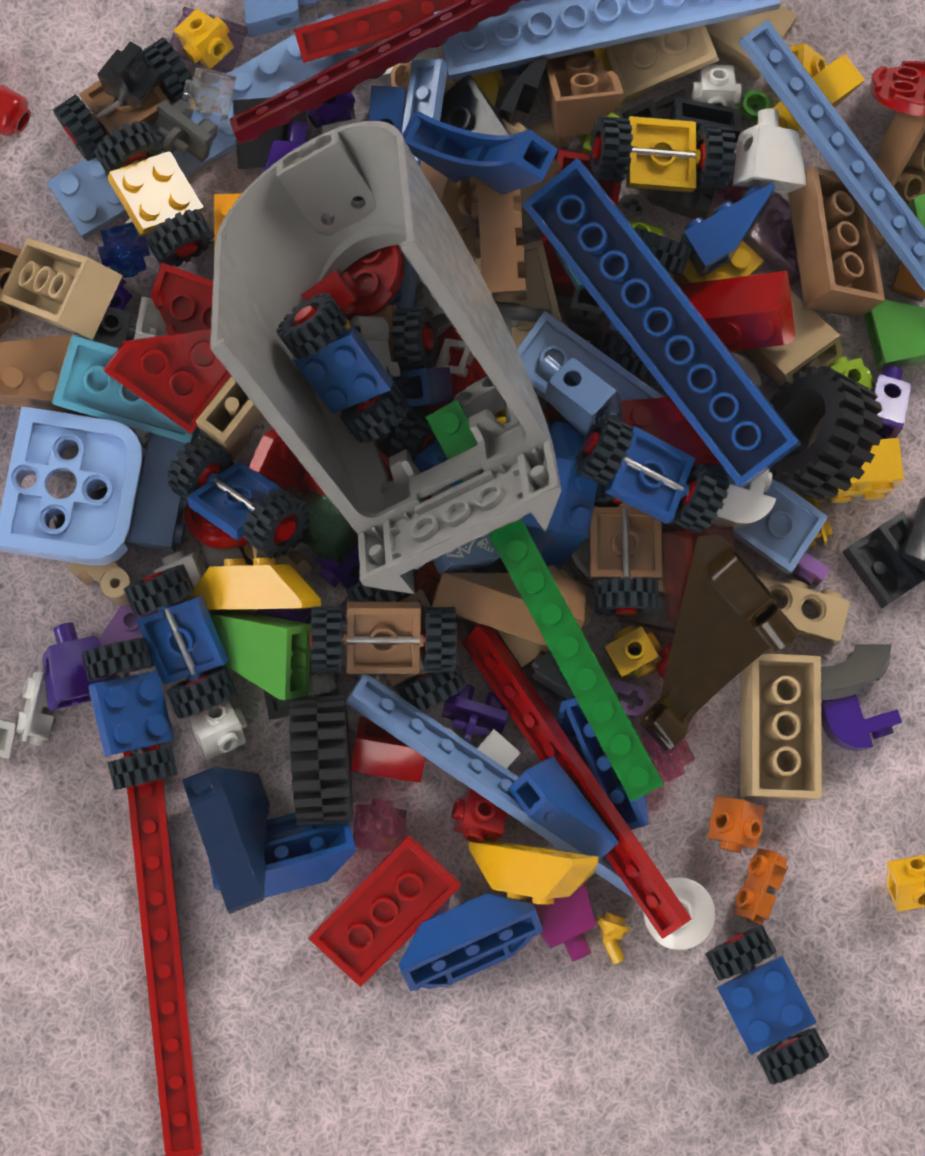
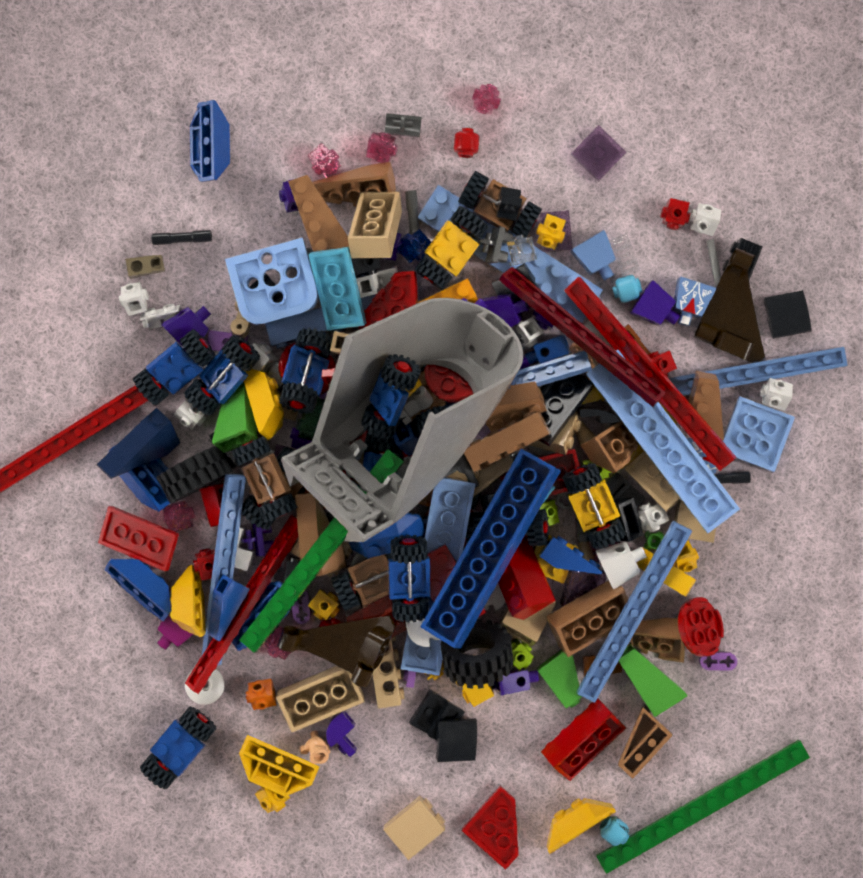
camera: 70 degrees right, 10 degrees up
(62, 237) = (412, 207): none -> dark grey piece
(171, 373) = (352, 305): red plate -> none
(340, 286) = (431, 370): red brick -> none
(497, 160) = (532, 410): blue arch -> none
(576, 392) = (433, 529): medium blue torso -> none
(613, 928) = (183, 655): yellow plate -> none
(765, 870) = (245, 718): orange hinge -> none
(849, 677) = (367, 724): dark grey tile -> none
(863, 770) = (318, 749): none -> light nougat piece
(870, 850) = (276, 768): none -> yellow wedge

